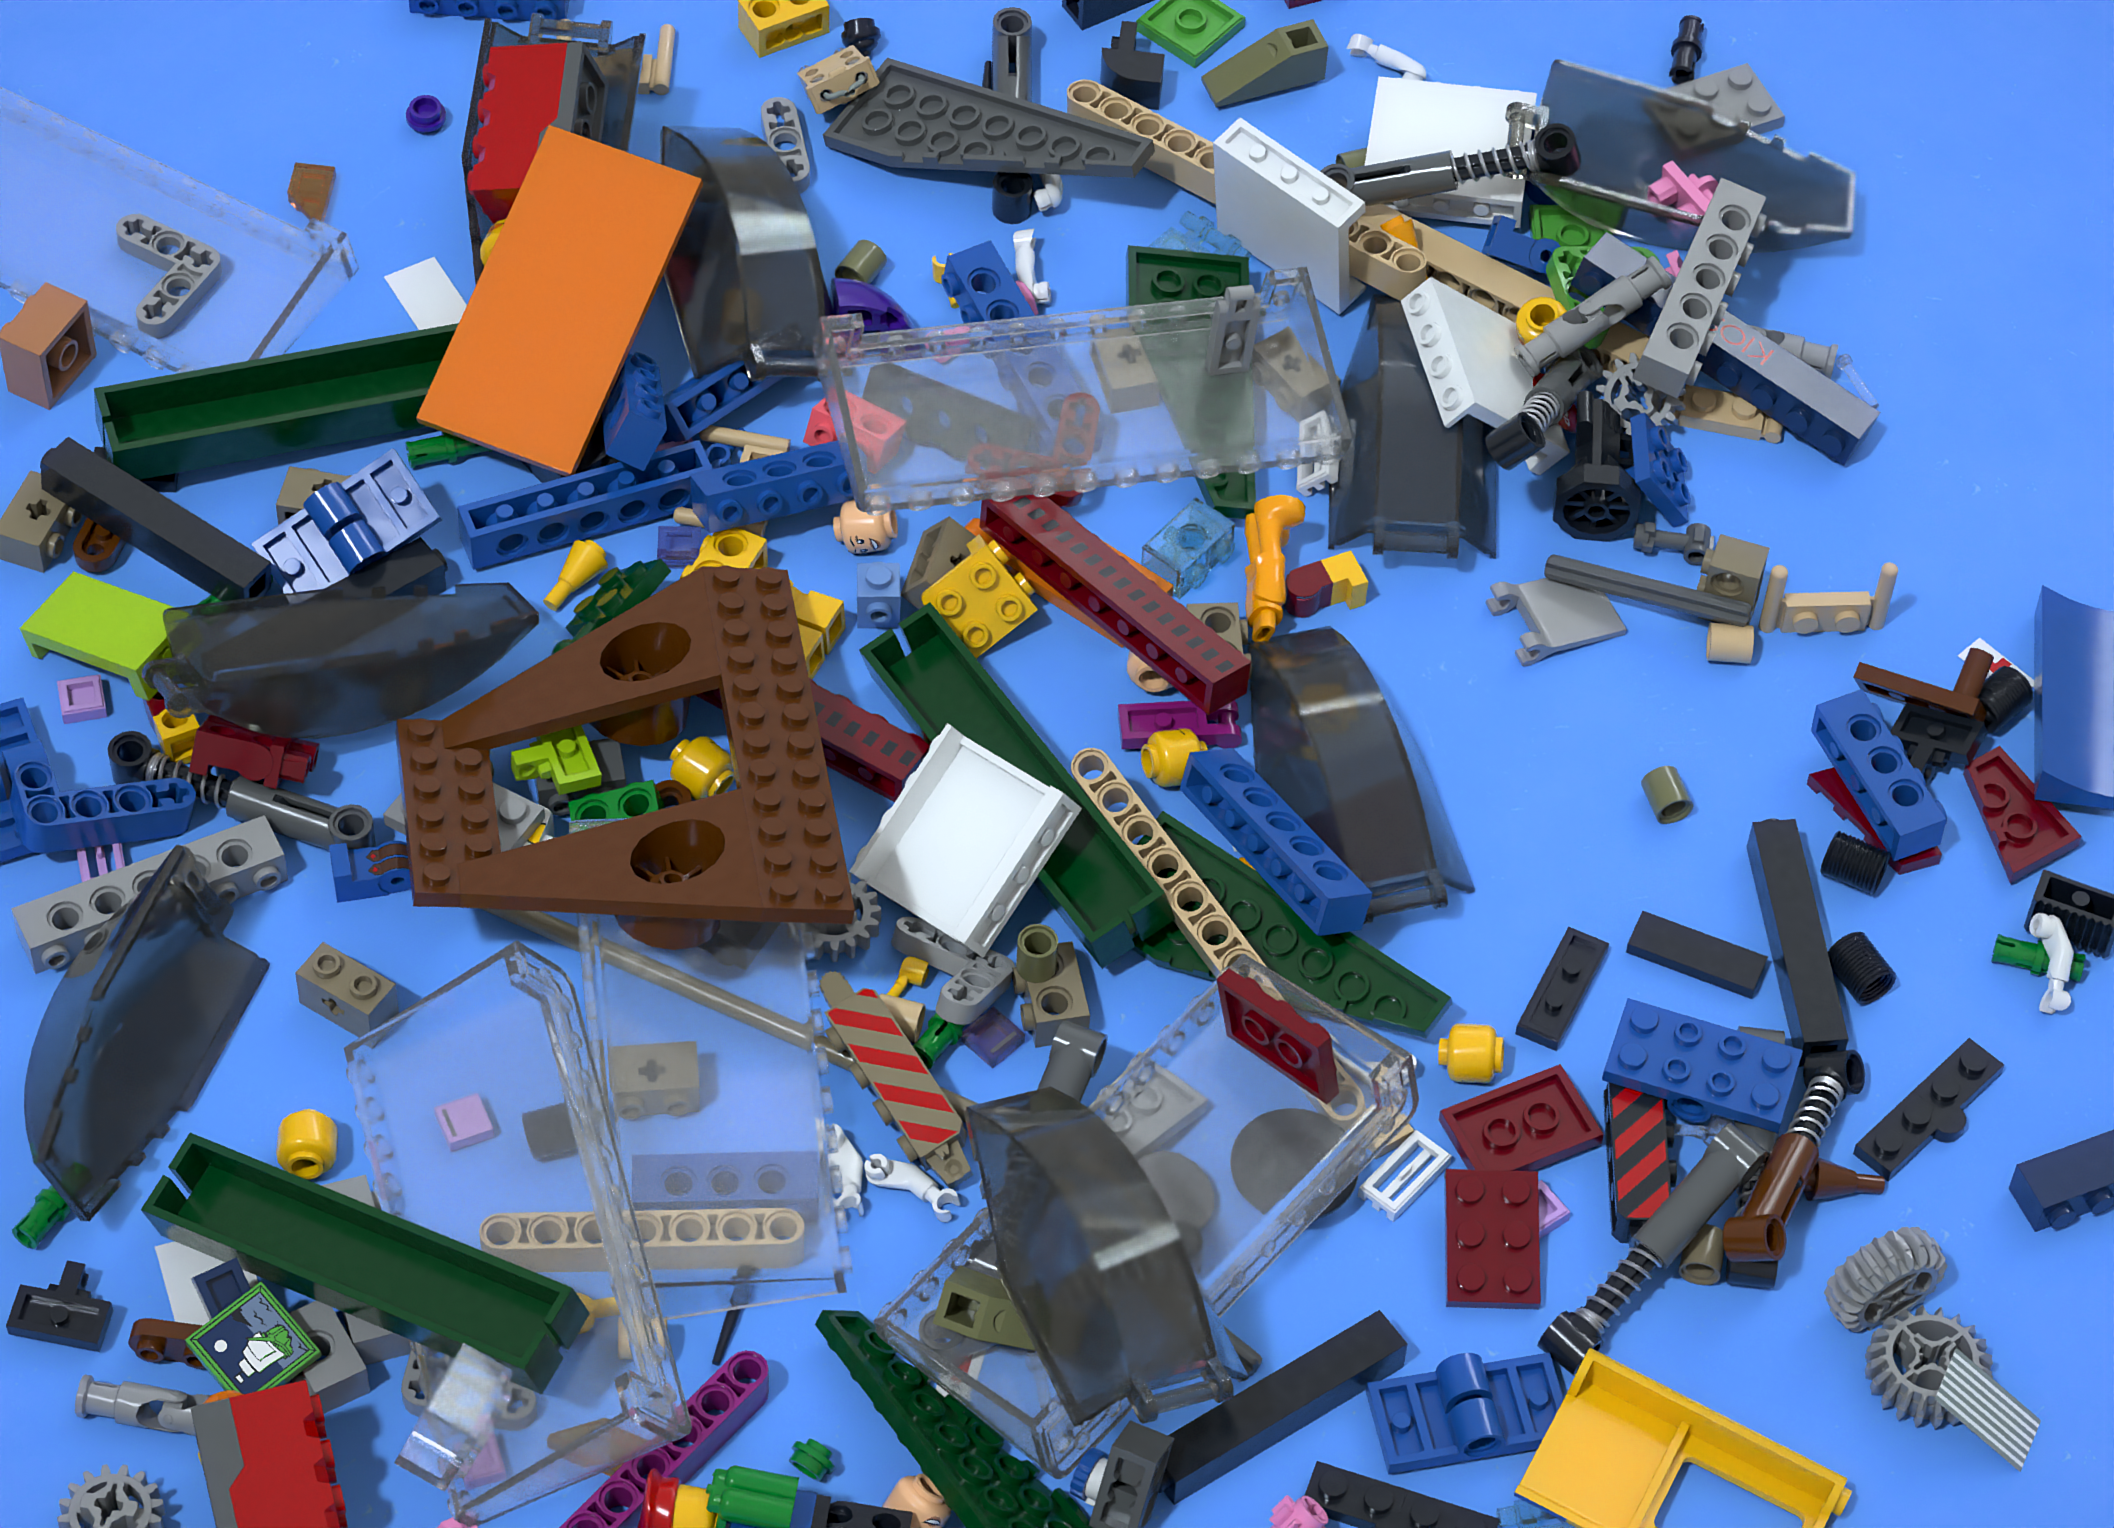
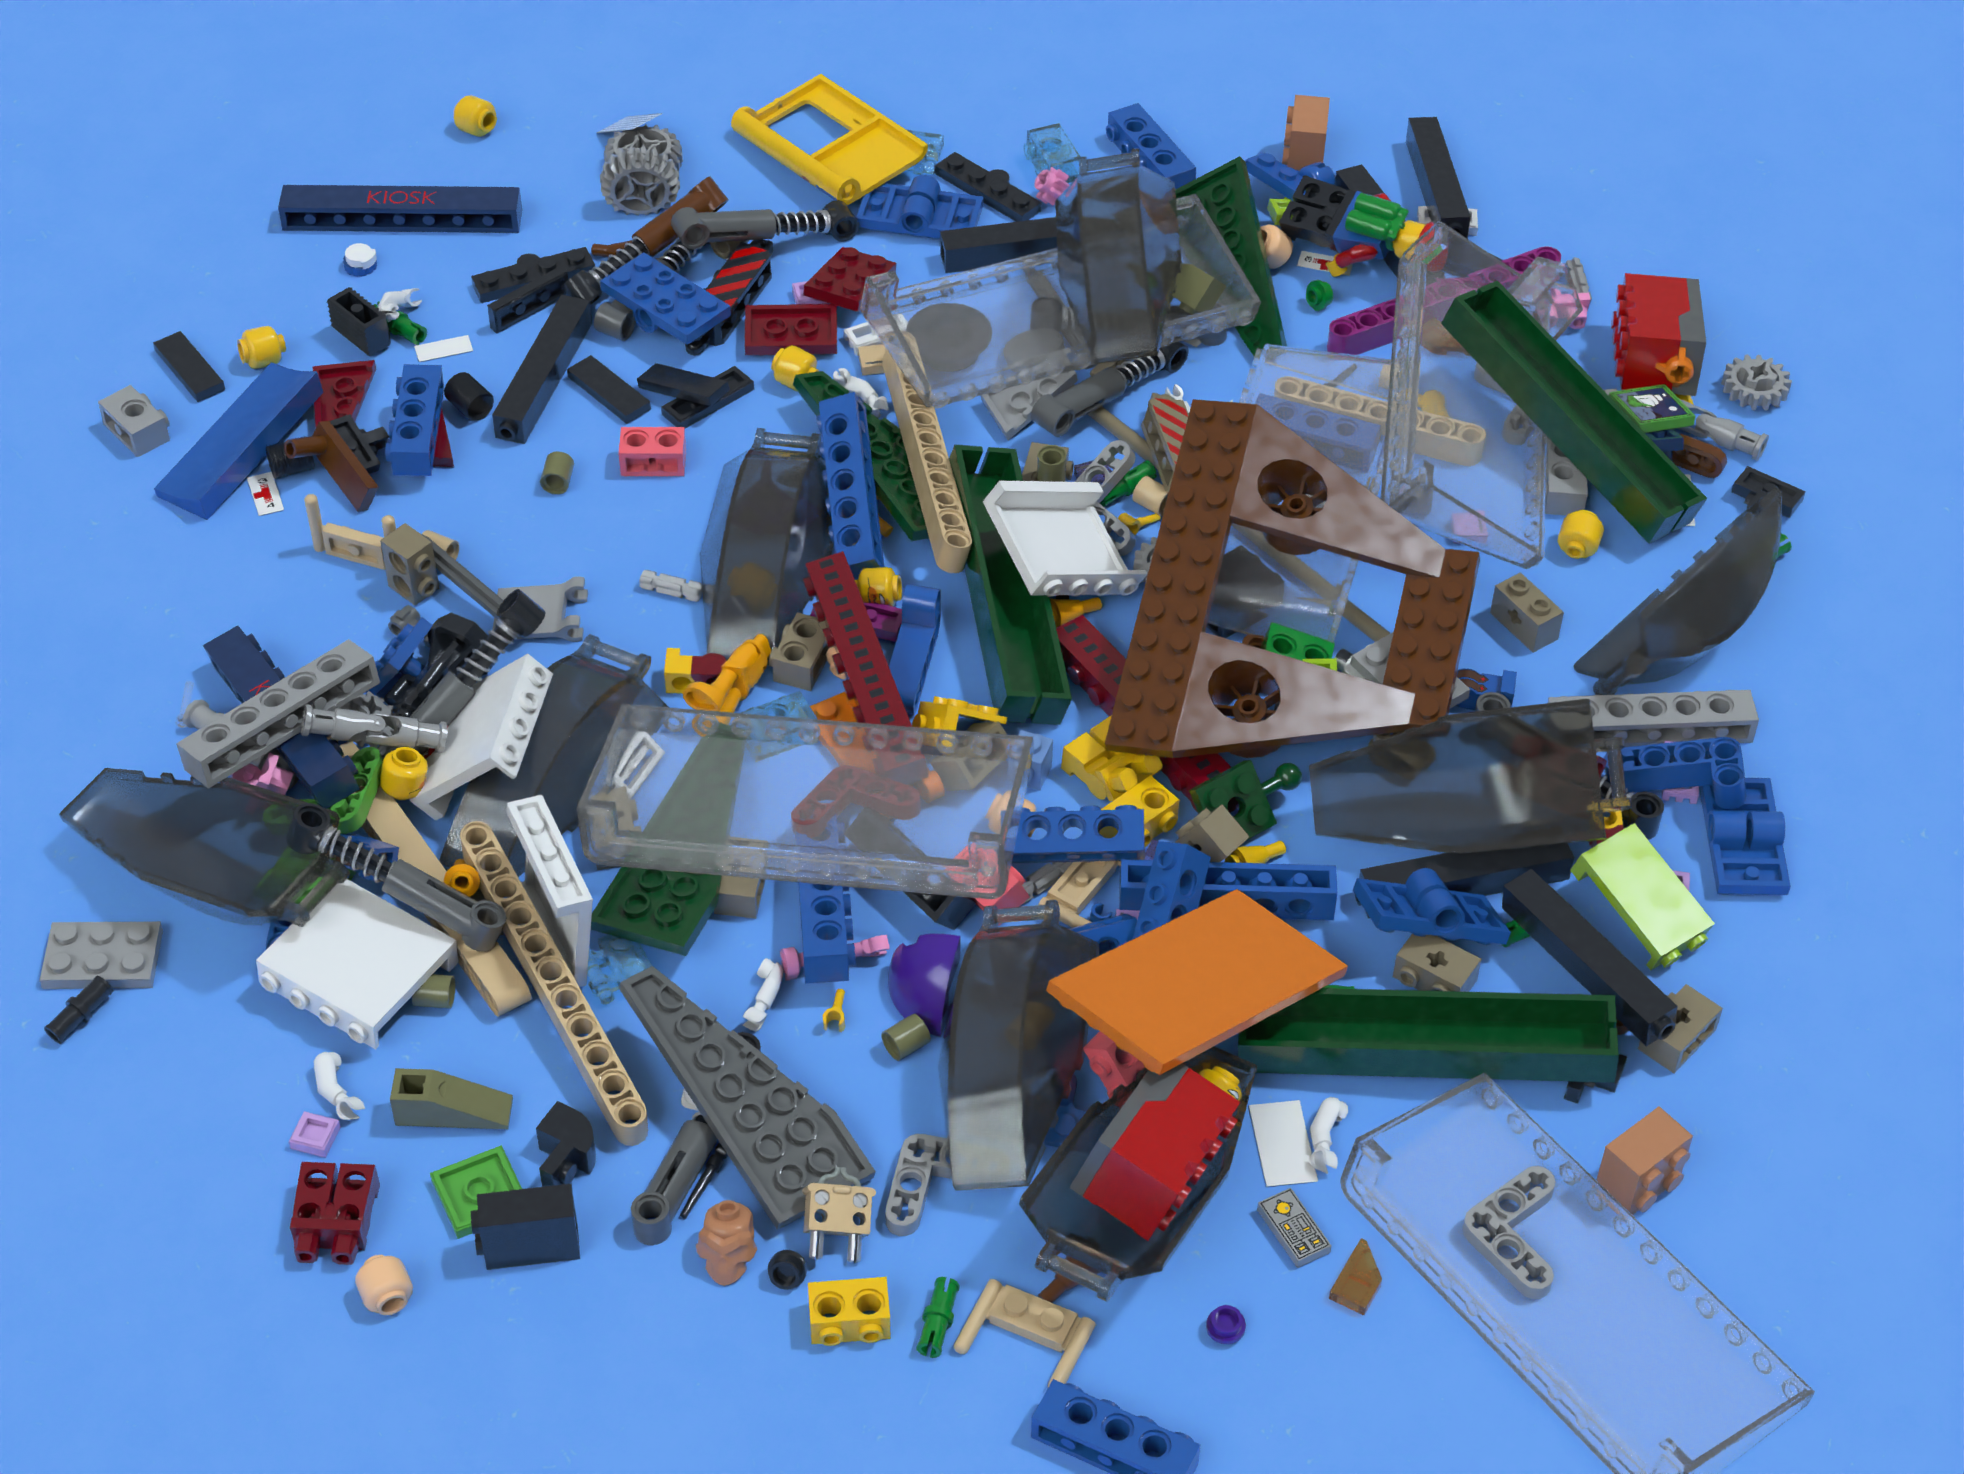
camera: 155 degrees left, 5 degrees down
(391, 219) = (1294, 1227): none -> tile
(395, 314) = (1329, 1112): none -> white arm
(623, 528) = (1213, 833): none -> dark tan brick
(700, 43) = (938, 1317): none -> green pin
(928, 31) = (727, 1241): none -> nougat head
(1090, 702) = (915, 642): none -> blue beam
(1233, 331) = (664, 790): light grey hinge -> none
(1278, 1035) = (937, 327): dark red plate -> none
(1379, 22) = (314, 1134): none -> lavender tile
(1429, 696) = (671, 585): none -> light grey axle
(1568, 857) = (652, 451): none -> coral brick
(1597, 972) = (683, 384): none -> black tile
(1684, 192) = (203, 847): bright pink hips -> none
(1861, 968) = (514, 340): black piece -> none
(1895, 1046) = (527, 300): none -> black tile
(1956, 955) = (443, 348): none -> white sticker

